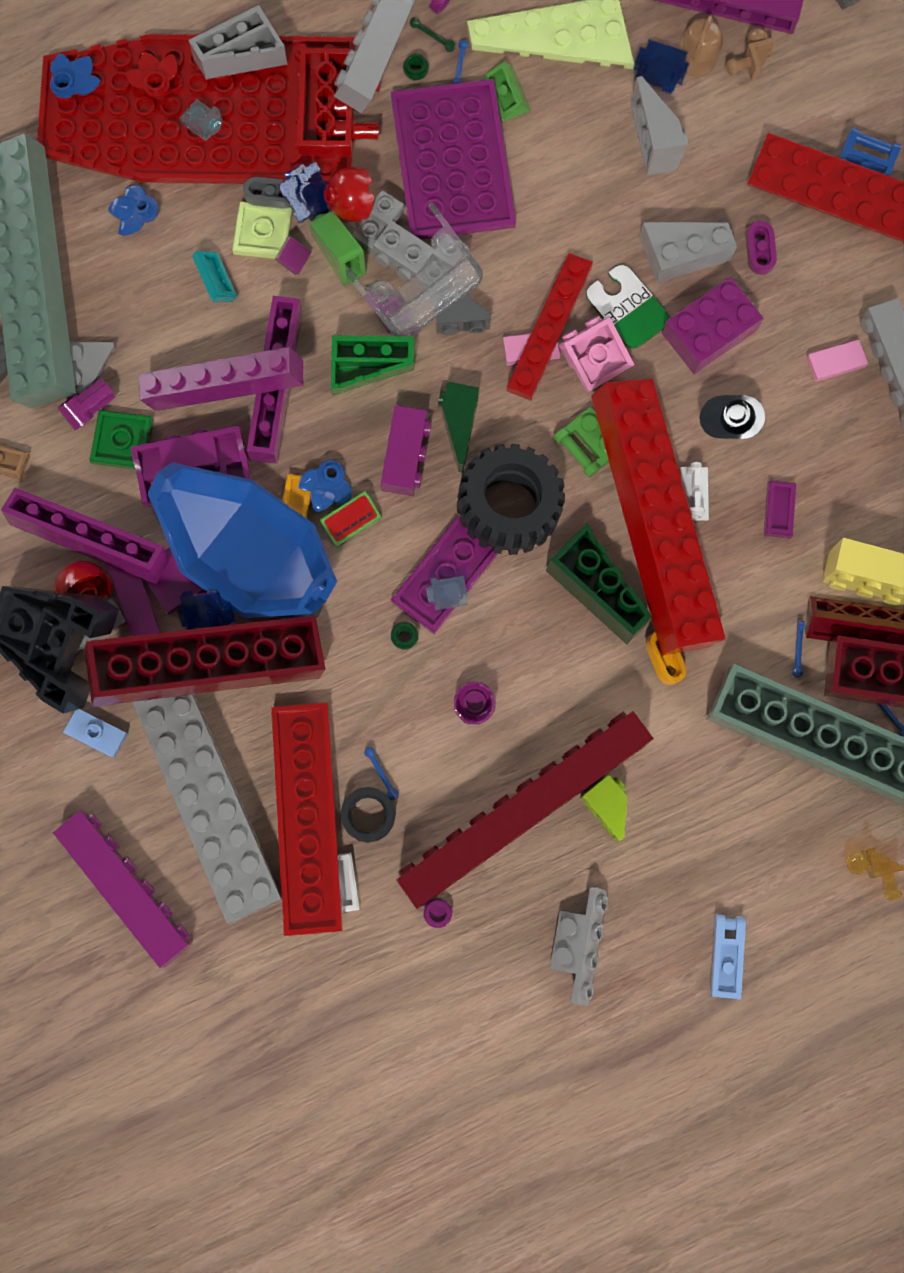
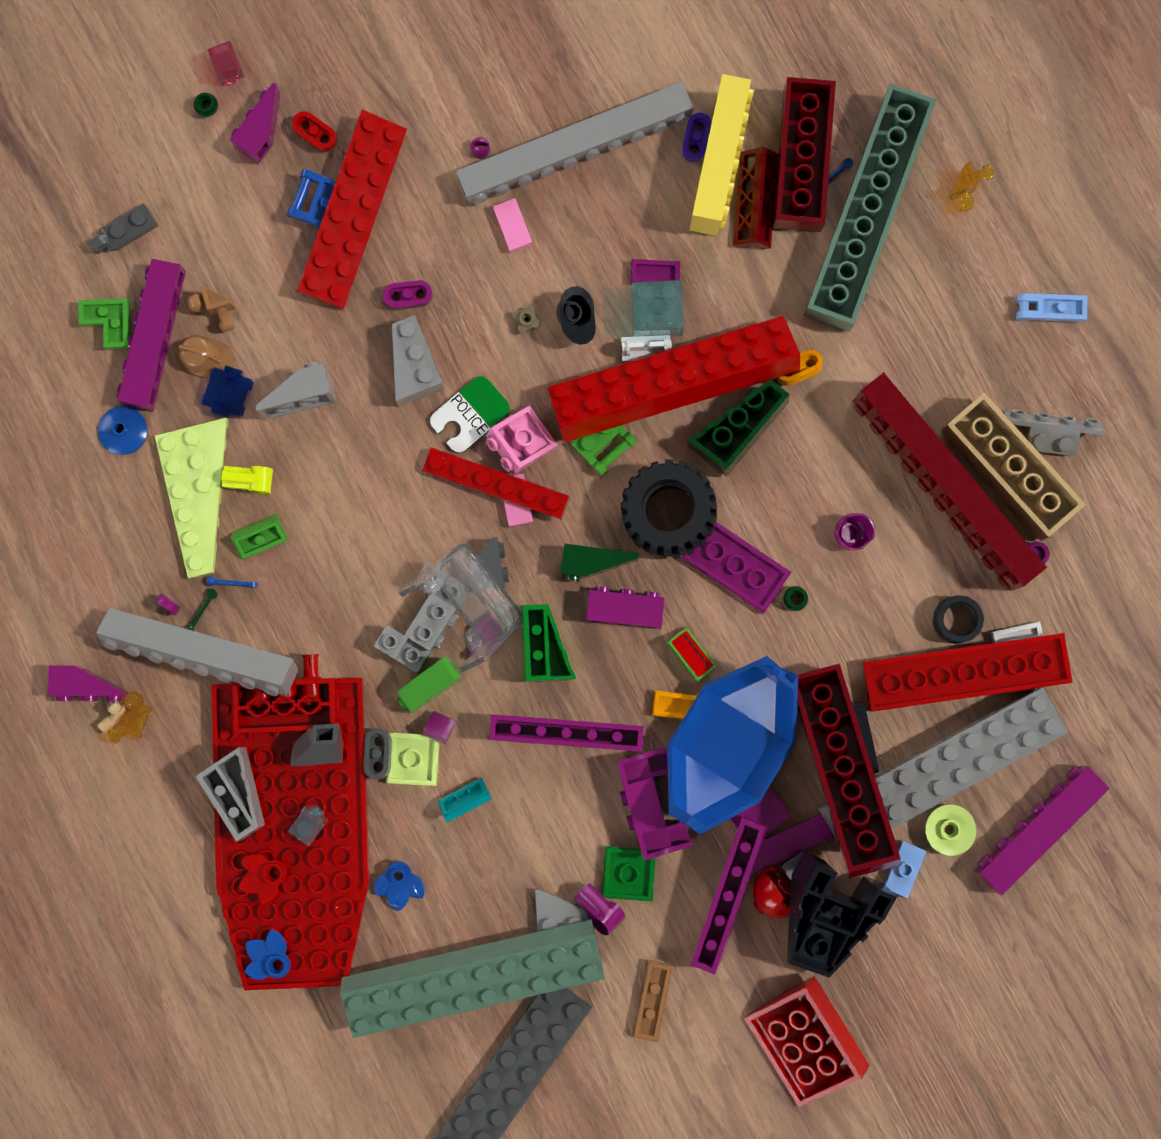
camera: 90 degrees left, 5 degrees up
(118, 783) = (963, 830): none -> yellowish green dish
(204, 610) = (794, 777): clear blue piece -> none
(221, 379) = (576, 780): magenta brick -> none
(242, 697) = (862, 718): none -> black beam
(280, 130) = (318, 746): none -> dark grey slope
(305, 191) = (377, 718): clear blue piece -> none
(325, 489) = (665, 679): blue plate -> none
(349, 194) = (382, 675): red cylinder -> none
(392, 792) = (935, 600): blue hinge -> none
(415, 60) = (230, 624): dark green plate -> none
(447, 592) = (756, 561): clear light blue bracket -> none
(453, 158) = (332, 583): magenta plate -> none
(539, 889) = (1013, 467): none -> tan brick
(567, 85) = (254, 479): none -> neon yellow piece
(609, 805) = (936, 408): lime slope -> none
(712, 325) = (488, 336): magenta brick -> none
(725, 374) = (533, 322): none -> dark tan plate
(738, 505) = (657, 308): none -> clear light blue brick
(797, 670) = (801, 255): blue hinge -> none

